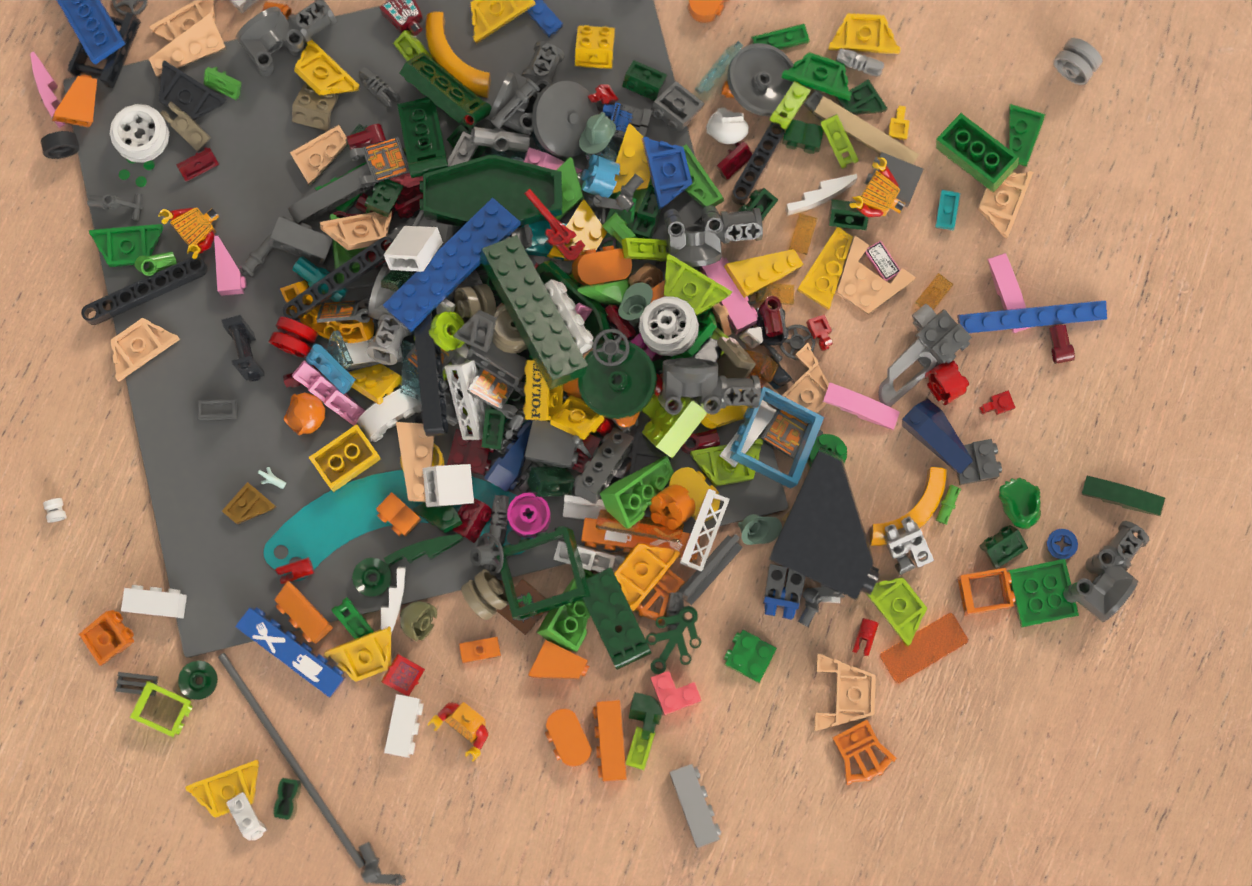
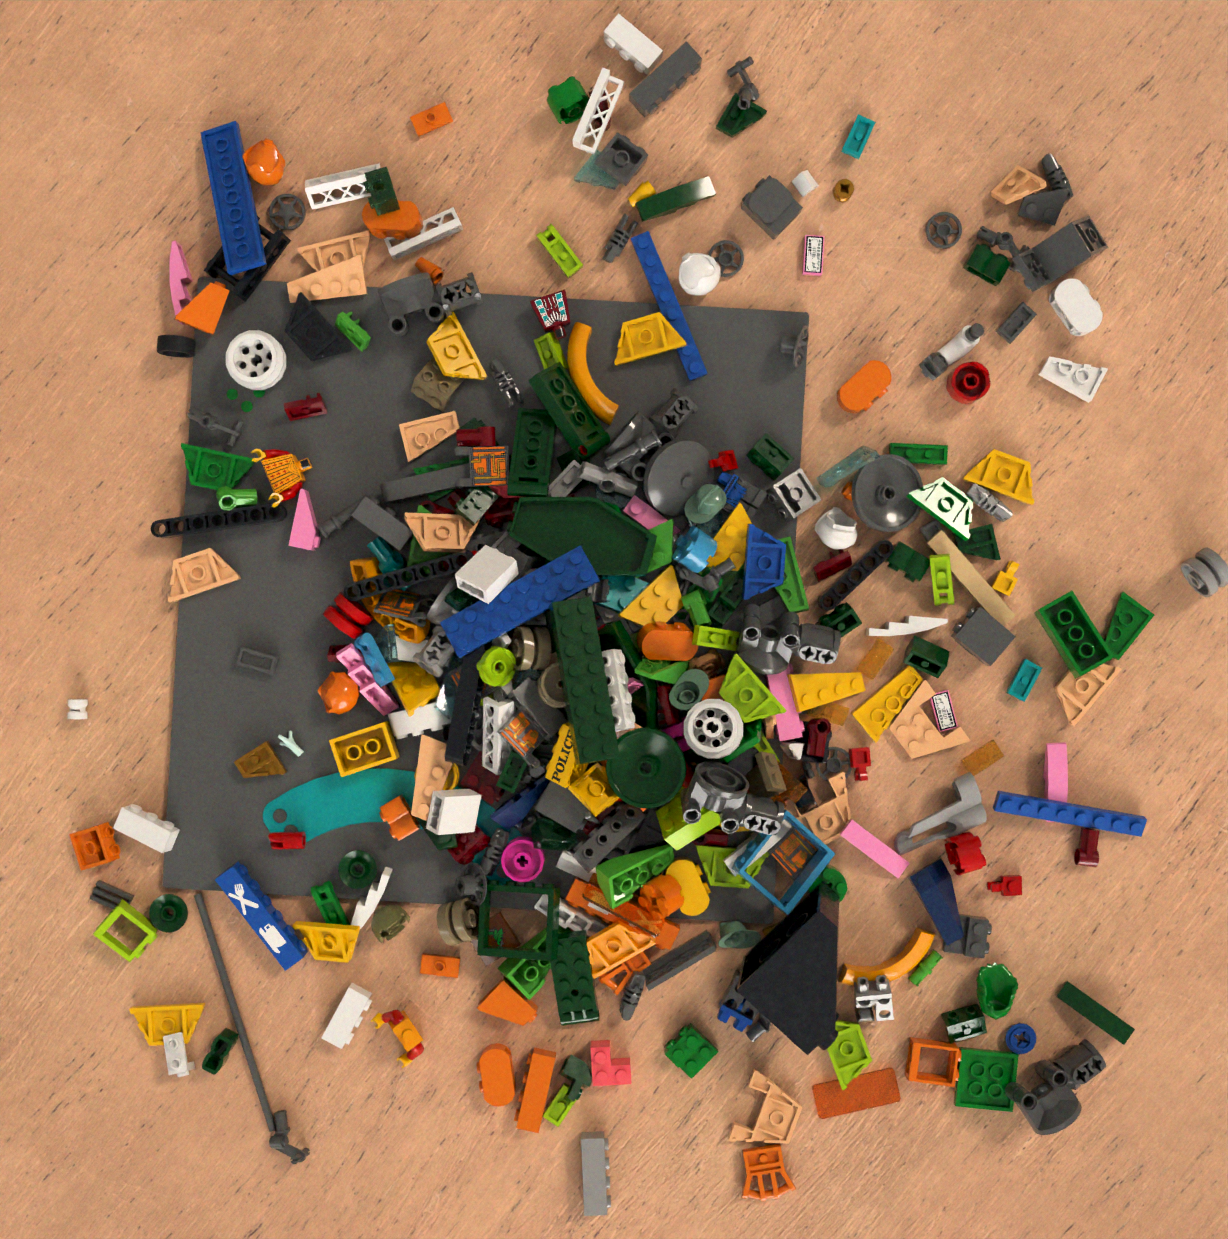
camera: 15 degrees right, 10 degrees up
(186, 127) = (304, 366): dark tan hinge -> none
(242, 337) = (294, 616): black fence -> none
(302, 613) = (283, 884): orange slope -> none
(403, 675) = (360, 969): red piece -> none
(431, 547) = (420, 858): dark green slope -> none
(478, 331) = (524, 680): dark grey wing -> none
(558, 233) = (635, 600): red piece -> none
(594, 47) = (732, 406): yellow bracket -> none
(611, 347) = (649, 737): dark grey wheel -> none
(676, 637) = (625, 1015): dark green plant -> none
(697, 529) = (680, 925): white fence -> none
(790, 105) = (905, 528): lime plate -> none
(866, 632) = (806, 1064): red hinge -> none
(879, 194) = (964, 651): torso -> none
(943, 337) = (977, 813): dark grey plate -> none

